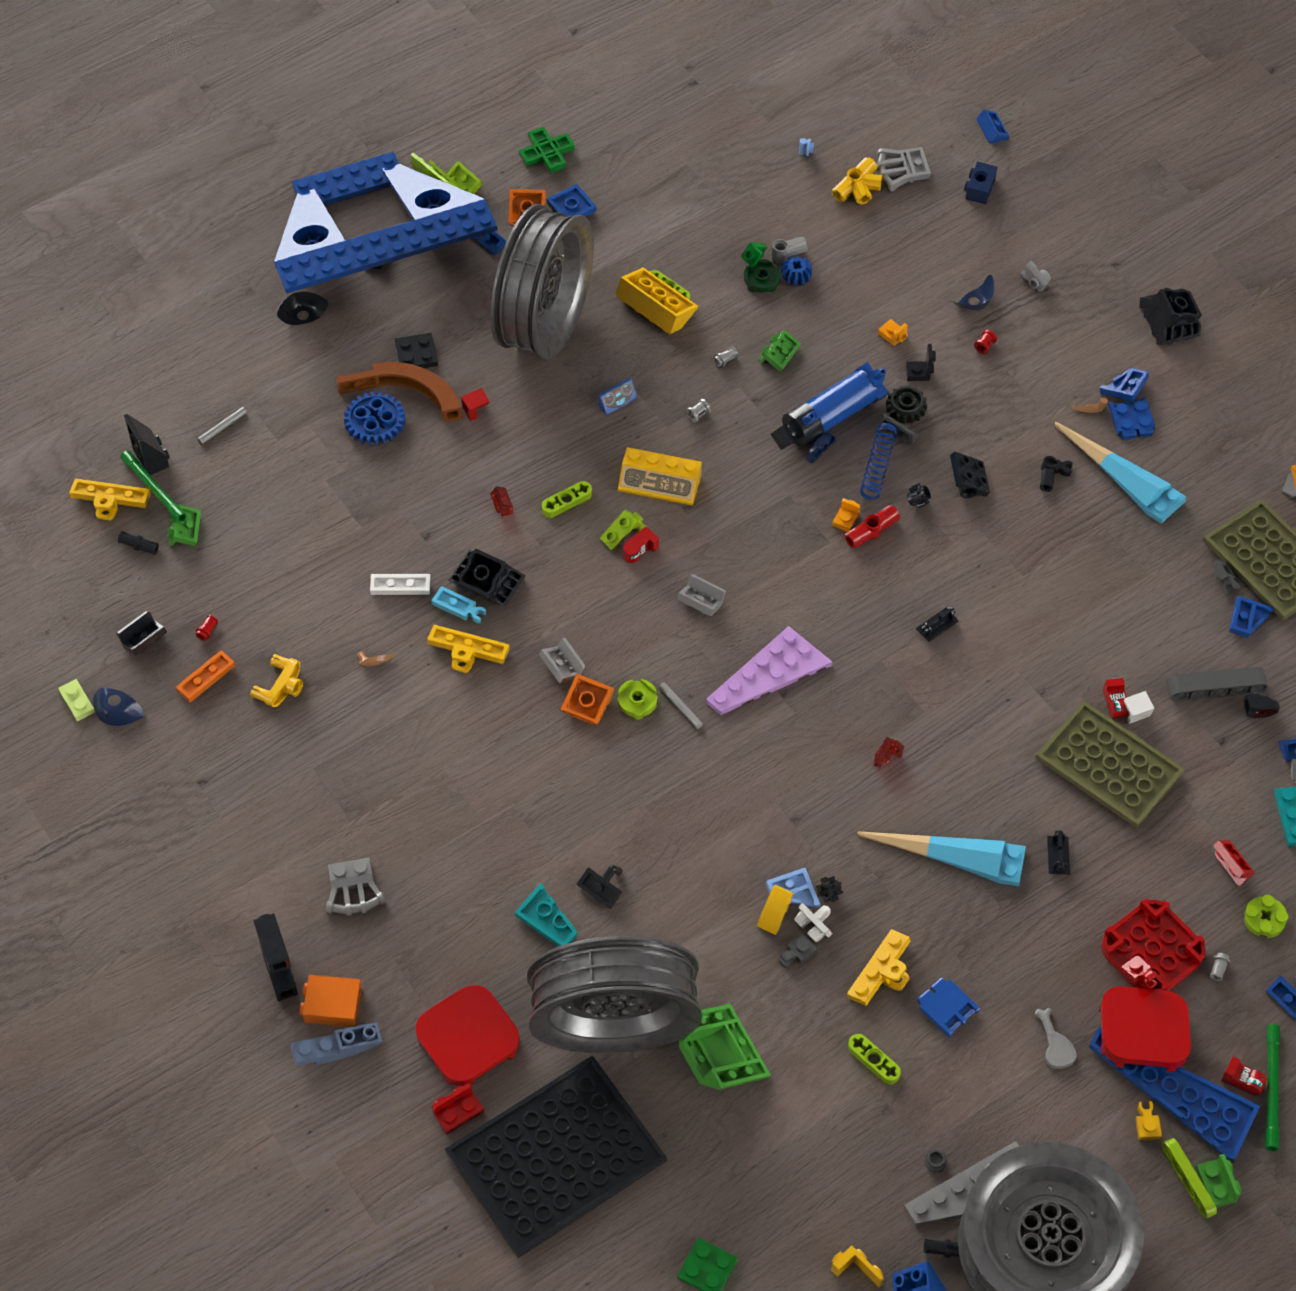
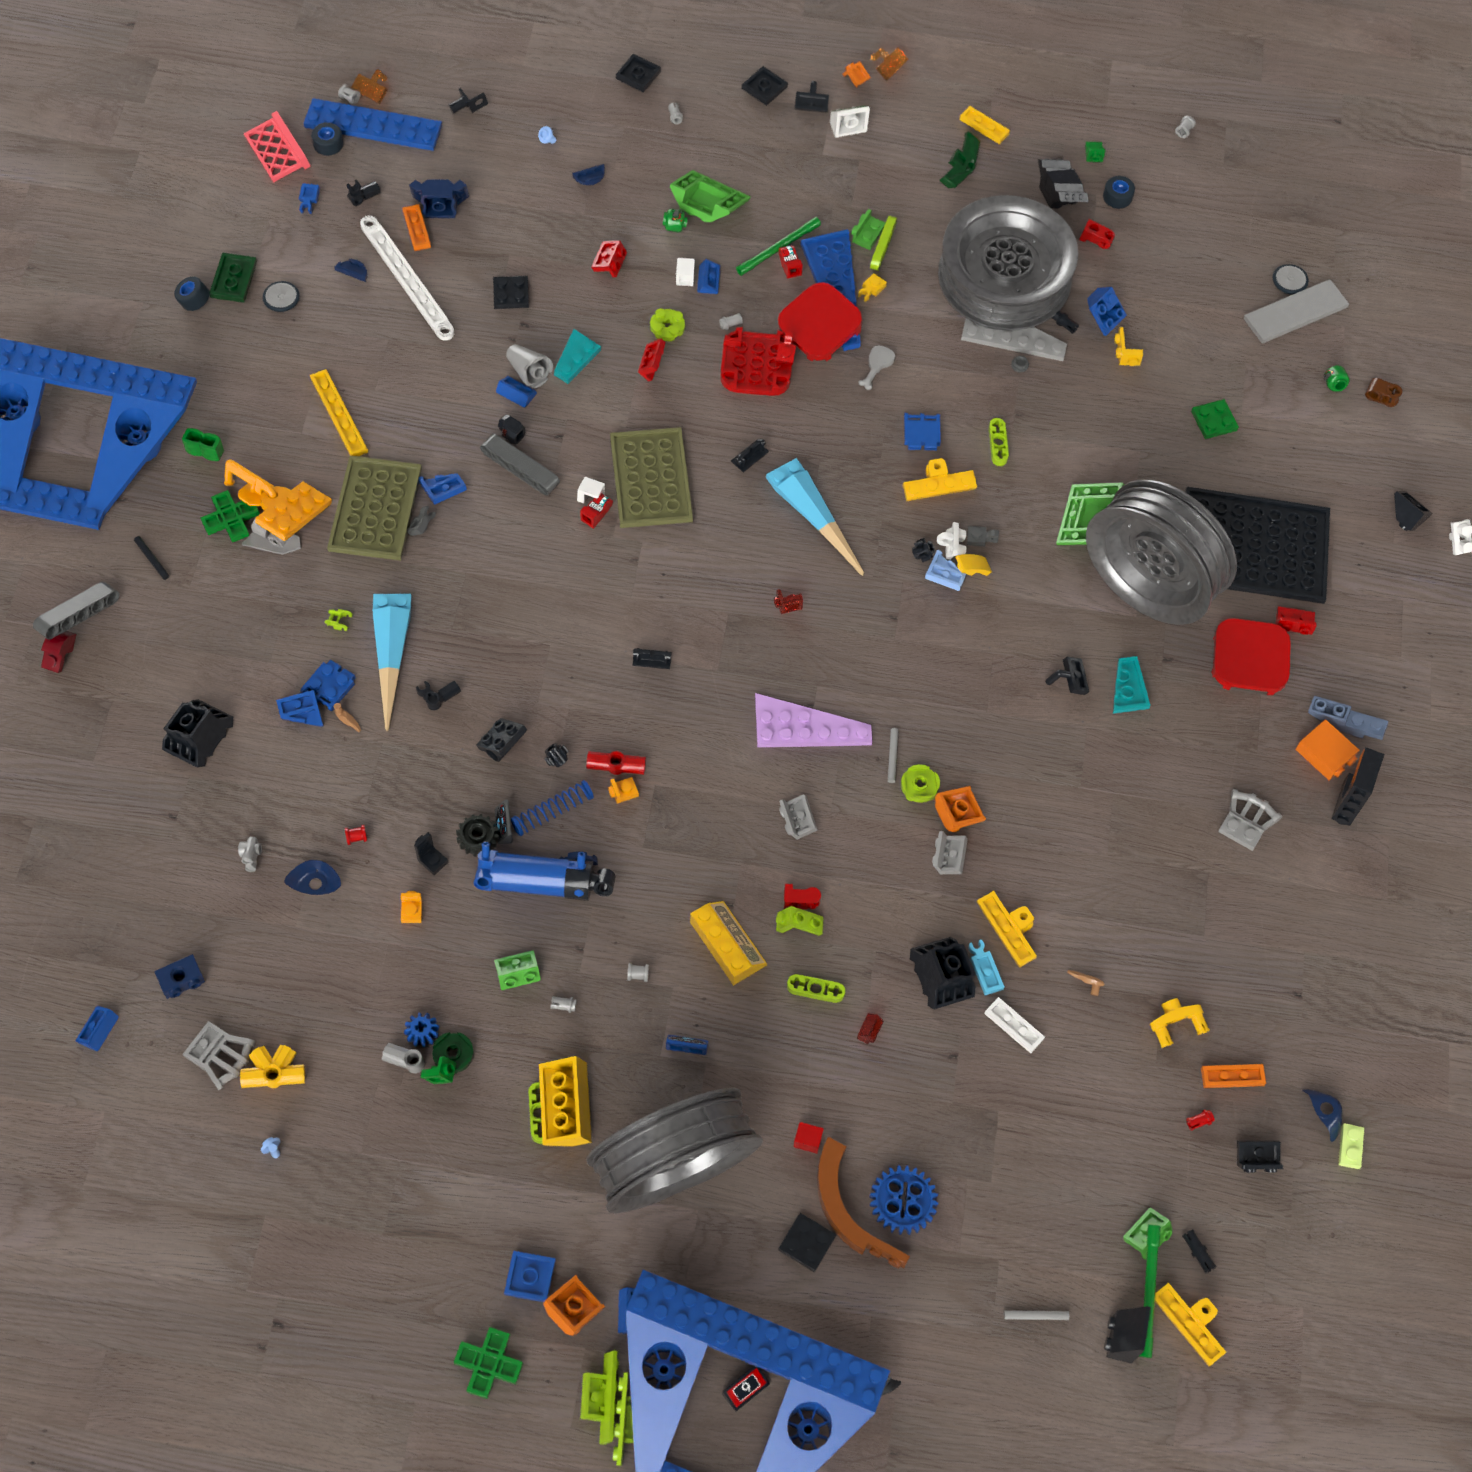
camera: 140 degrees left, 5 degrees up
(1183, 459) = (340, 613): none -> lime piece

